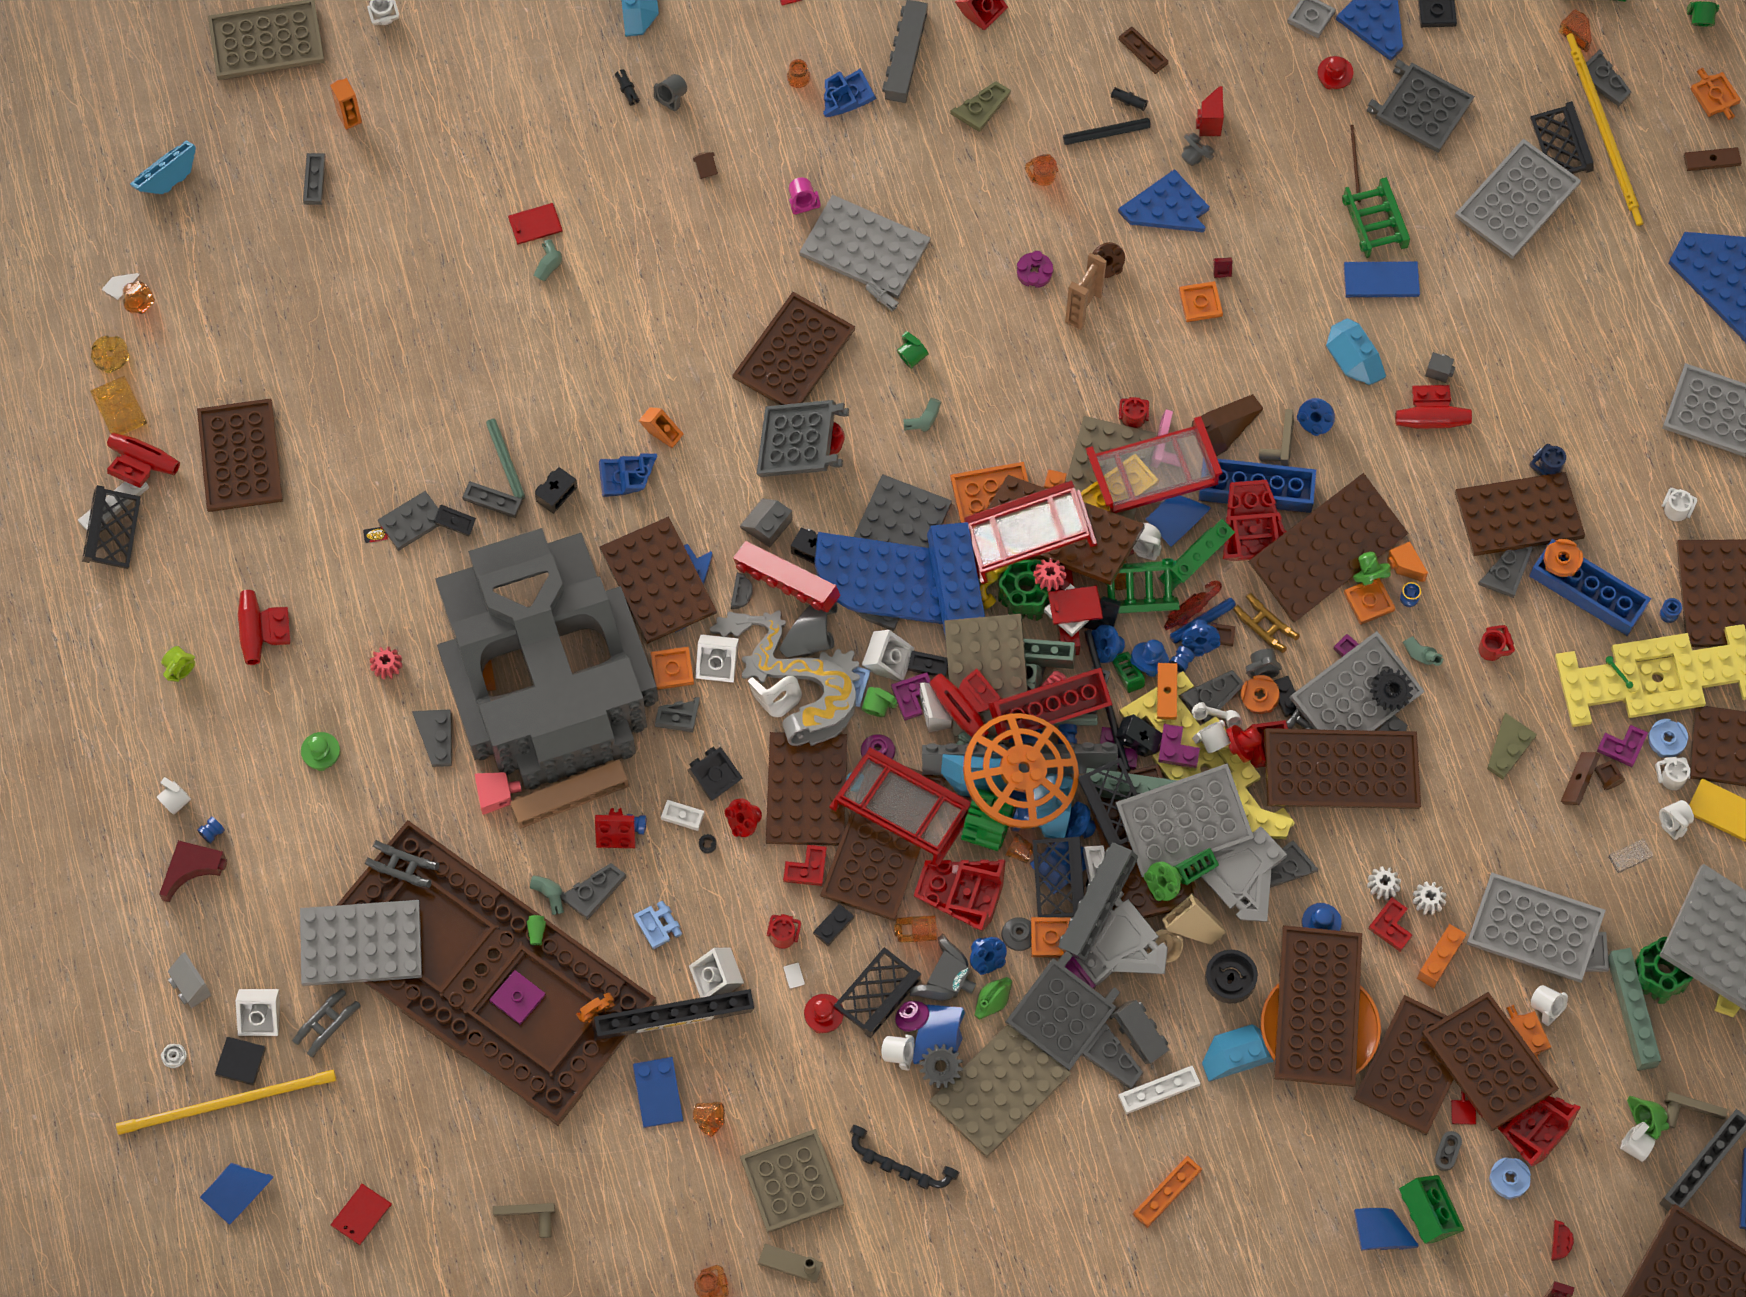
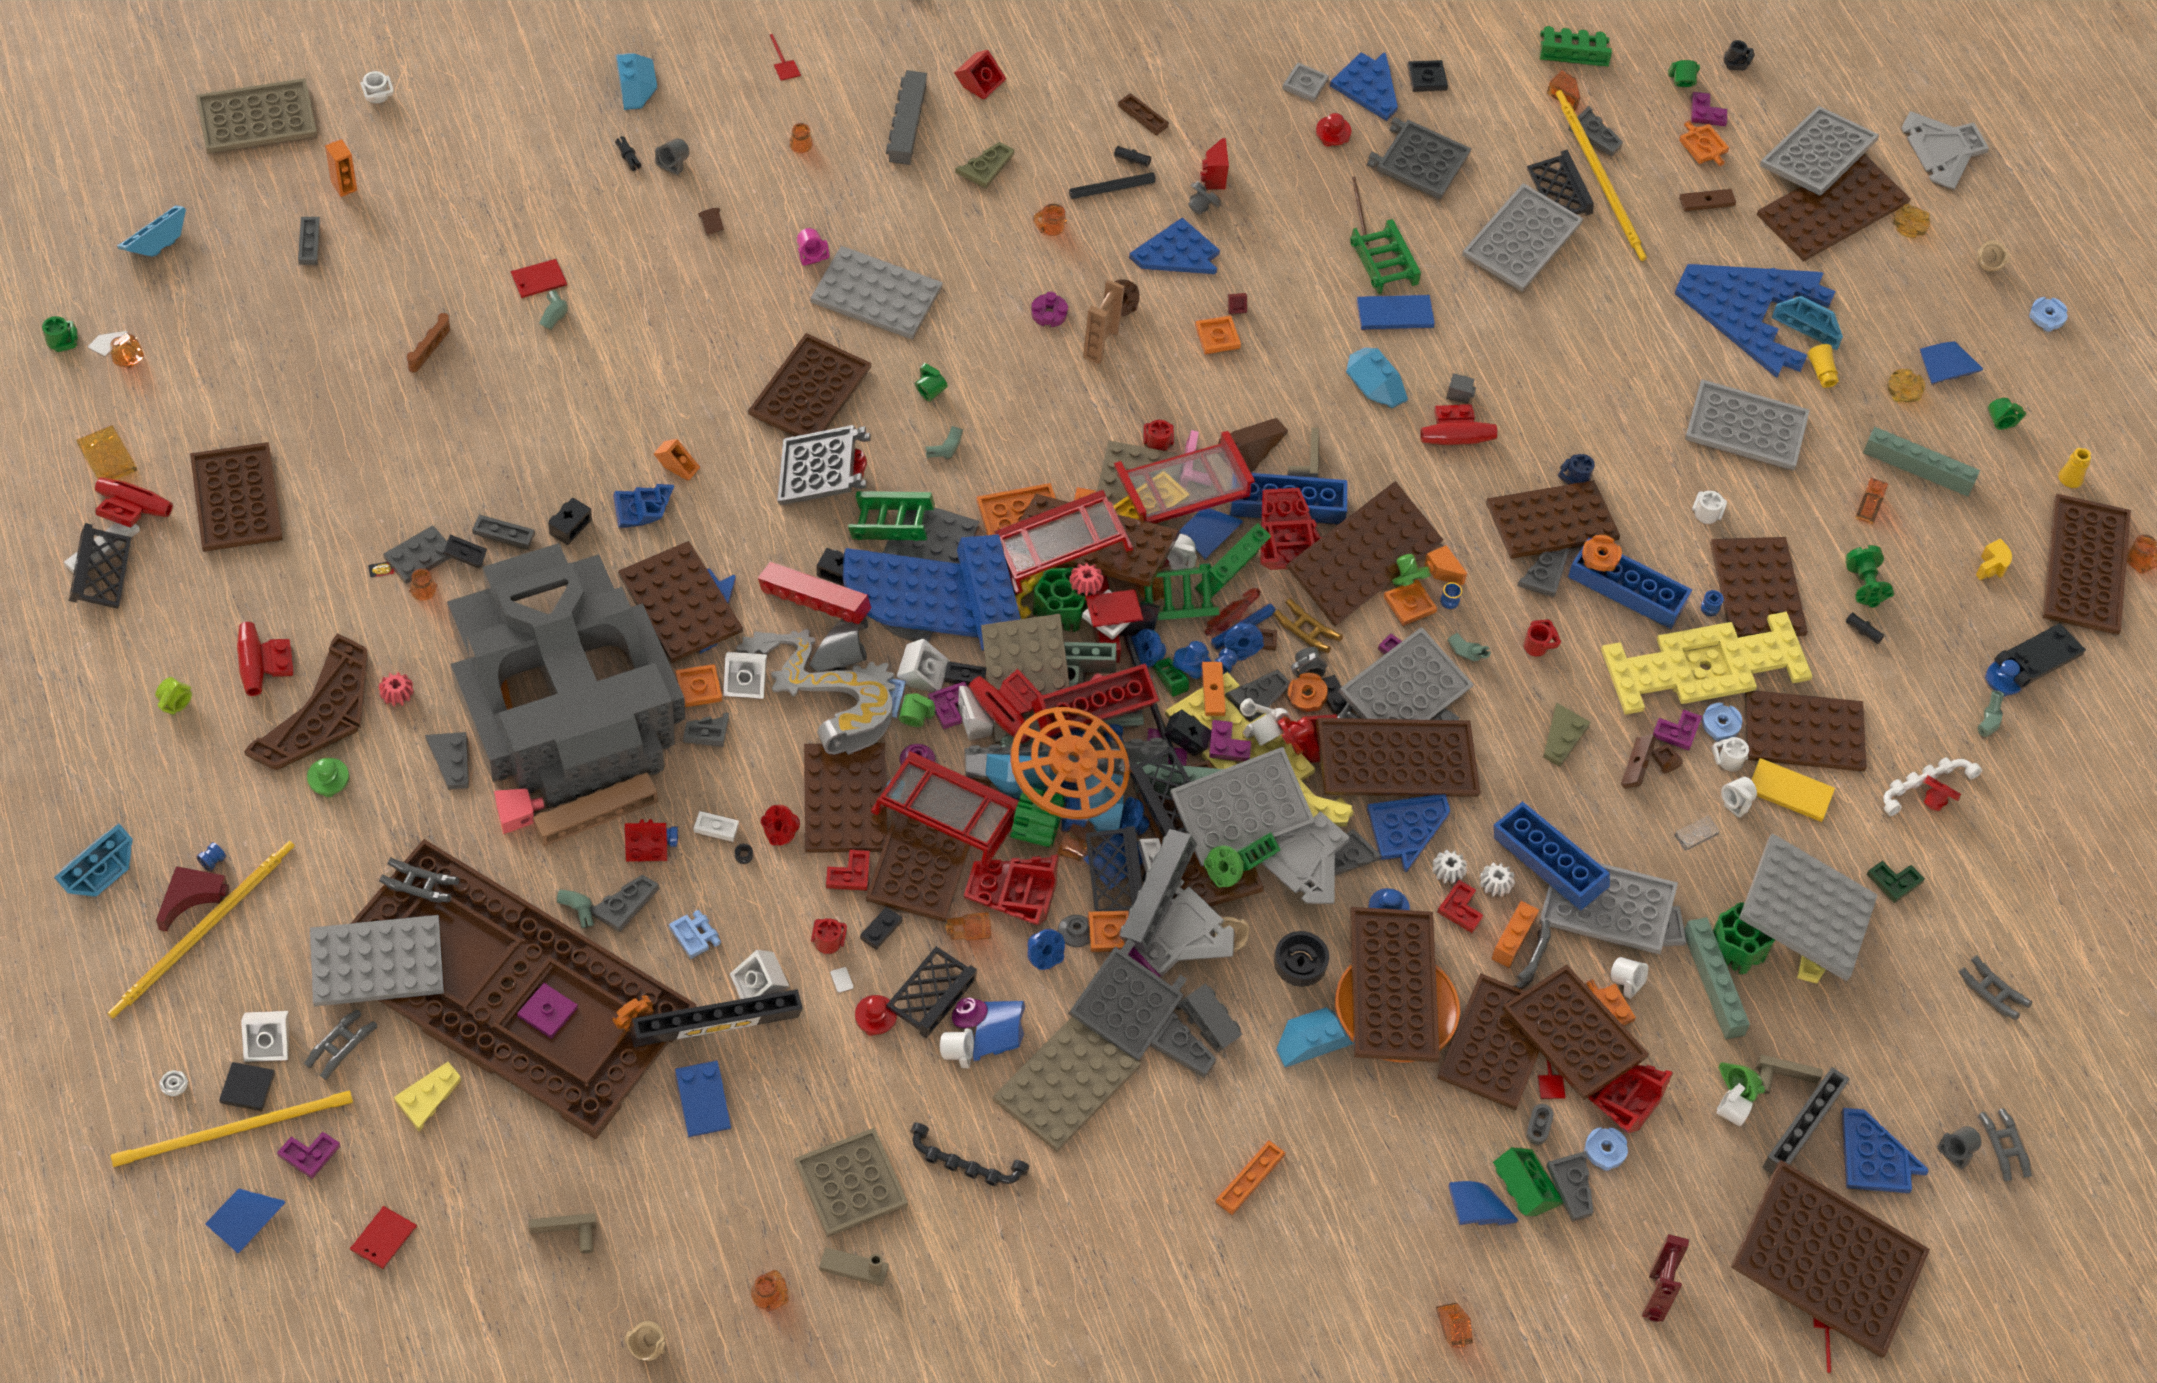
camera: 10 degrees left, 10 degrees down
(73, 277) = (57, 333): none -> green piece
(106, 835) = (97, 864): none -> dark azure wedge
(109, 363) = (100, 413): clear yellow plate -> none
(173, 796) = (170, 823): white piece -> none
(188, 981) = (189, 1006): light grey slope -> none
(204, 899) = (200, 930): none -> yellow axle
(295, 1135) = (309, 1159): none -> magenta plate
(314, 693) = (327, 716): none -> reddish brown wing
(404, 1075) = (425, 1095): none -> light yellow wing
(414, 554) = (422, 584): none -> clear orange piece
(424, 298) = (429, 344): none -> dark orange plate
(505, 458) = (515, 493): sand green axle -> none
(536, 929) = (565, 938): bright green cone -> none
(709, 1115) = (761, 1119): clear orange piece -> none
(714, 772) = (748, 783): black plate -> none
(742, 592) = (767, 613): dark grey tile -> none
(766, 697) = (797, 706): white piece -> none
(767, 521) = (792, 544): dark grey slope -> none
(846, 93) = (850, 156): blue slope -> none
(866, 478) = (891, 501): none -> green fence
(882, 296) = (896, 336): light grey axle -> none
(948, 976) = (1004, 973): dark grey torso -> none
(949, 1058) = (1008, 1069): dark grey gear -> none
(993, 997) = (1053, 993): bright green hat -> none
(1159, 1089) = (1234, 1076): white plate -> none
(1194, 921) = (1258, 907): tan slope -> none
(1316, 416) = (1342, 433): blue plate -> none
(1346, 838) = (1406, 826): none -> blue wing
(1387, 698) = (1441, 681): black gear -> none
(1450, 998) = (1527, 974): none -> dark grey piece
(1474, 1213) = (1571, 1180): none -> dark grey wing
(1483, 878) = (1551, 855): none -> blue brick
(1562, 1241) = (1666, 1209): red tile -> none
(1609, 660) = (1657, 649): green hinge -> none
(1719, 58) = (1703, 113): none -> magenta plate

